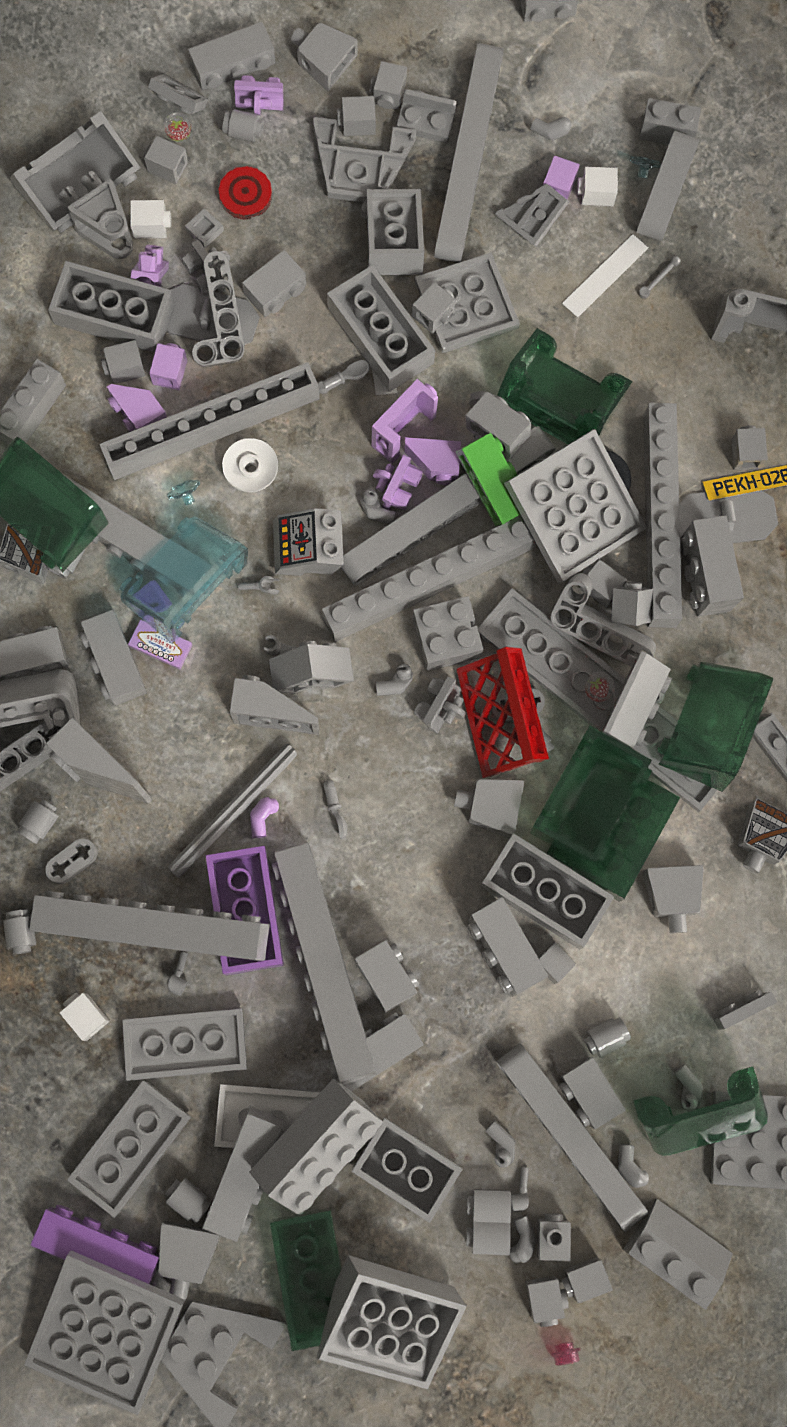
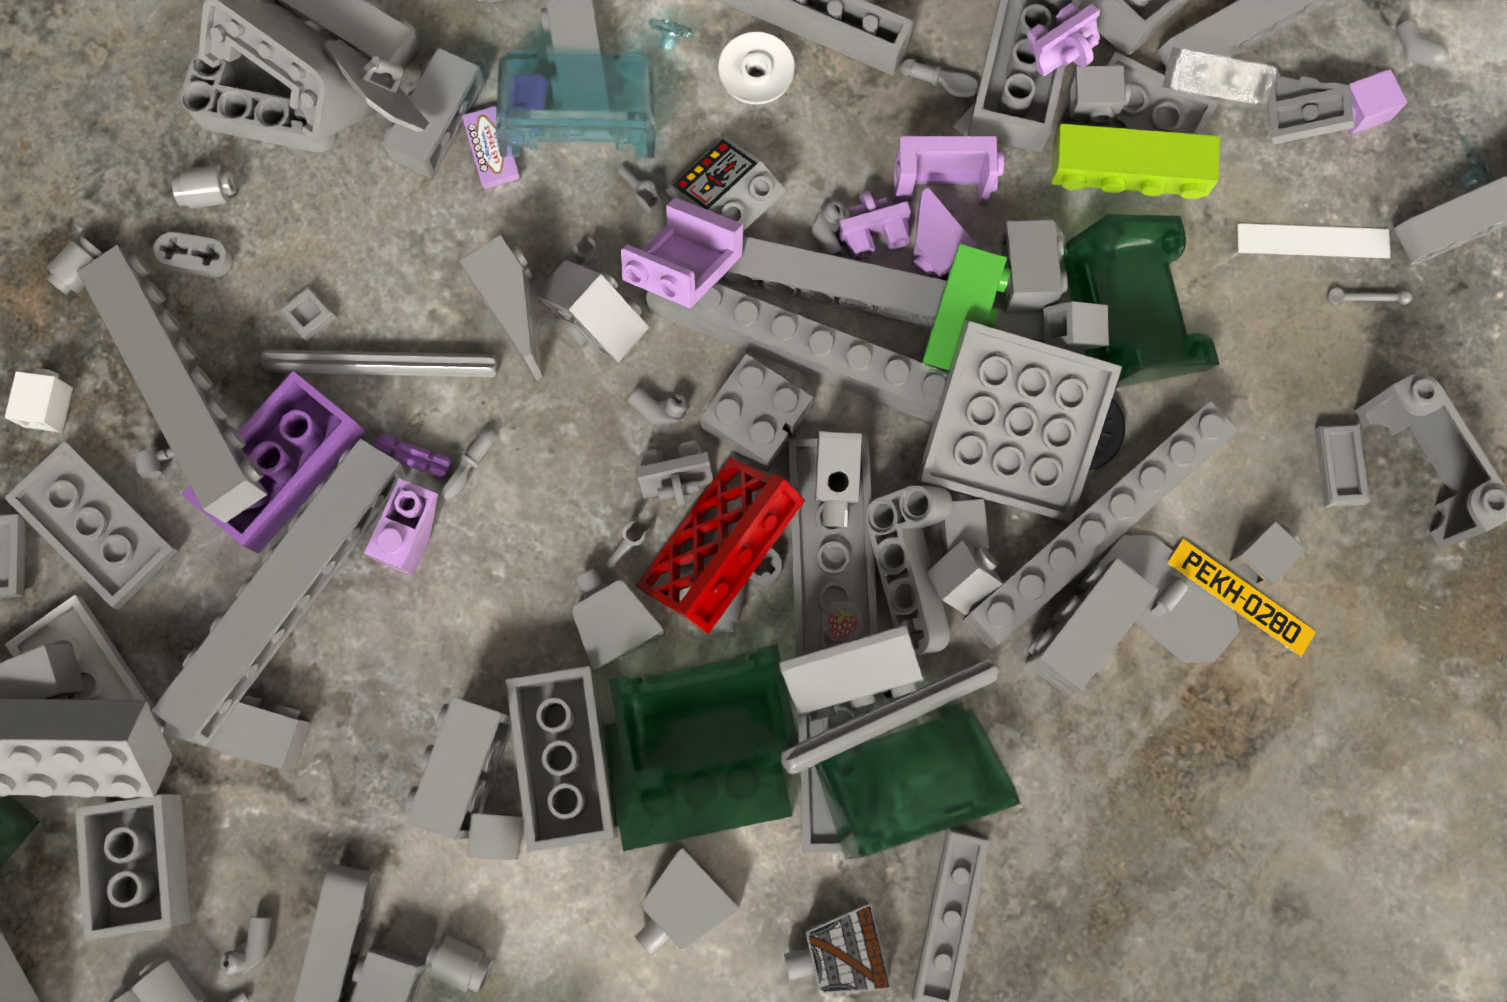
camera: 55 degrees right, 0 degrees up
(81, 671) = (377, 84): none -> light grey shield
(87, 760) = (289, 174): light grey slope -> none
(166, 826) = (307, 313): none -> light grey tile
(259, 813) = (395, 393): lavender arm -> none
(305, 834) = (415, 456): none -> medium lavender axle
(332, 592) = (685, 254): none -> lavender panel
(344, 870) = (403, 528): none -> lavender slope
(386, 975) = (322, 666): light grey piece -> none
(400, 296) = (1068, 42): none -> lavender hips
(455, 758) = (629, 539): none -> light grey hand
(480, 240) = (1219, 76): none -> clear plate
(488, 323) = (1135, 161): none -> lime brick
(512, 616) = (840, 456): none -> light grey torso
(551, 432) = (1076, 325): none -> light grey brick
(598, 186) = (1404, 145): white brick -> none
(671, 704) = (888, 716): none -> light grey axle
(734, 371) = (1342, 465): none -> light grey tile

